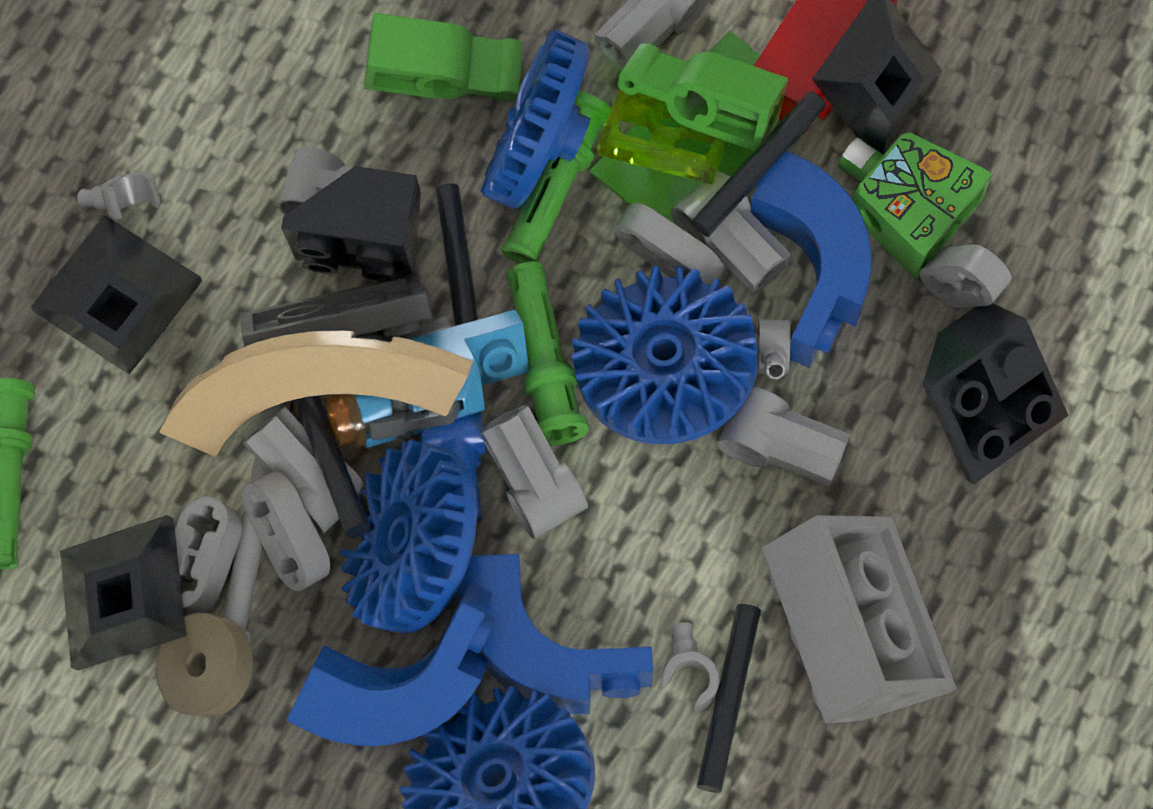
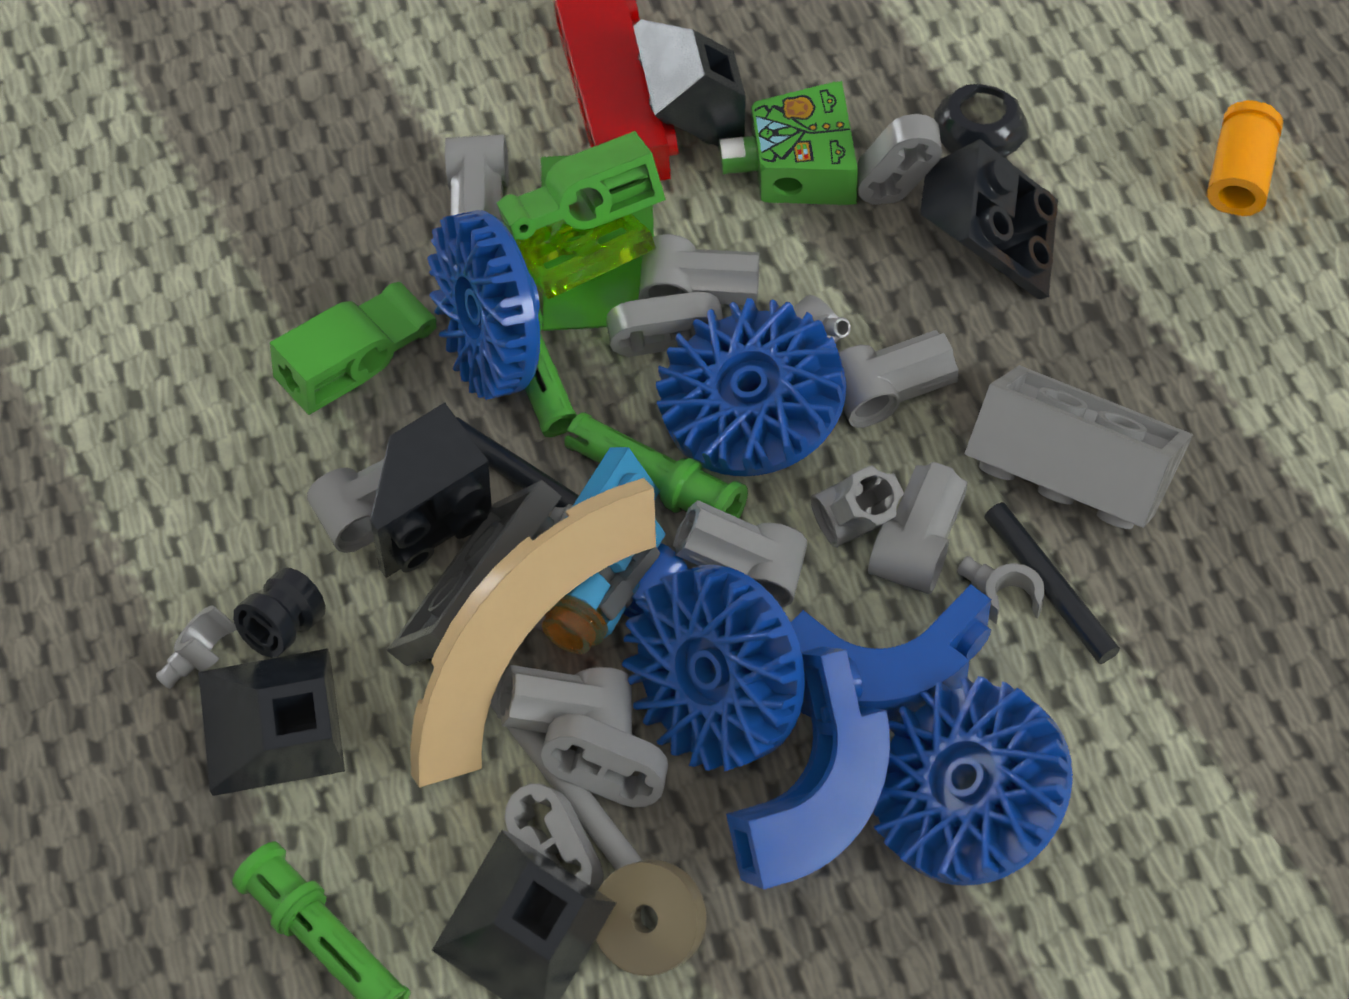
camera: 40 degrees left, 10 degrees down
(187, 221) = (272, 618): none -> black wheel
(332, 466) = (596, 673): black bar -> none
(645, 513) = (856, 505): none -> light grey piece
(659, 578) = (915, 542): none -> light grey piece
(758, 163) = (676, 205): black bar -> none
(826, 224) = (773, 219): blue arch -> none
(1068, 322) = (1002, 136): none -> black piece

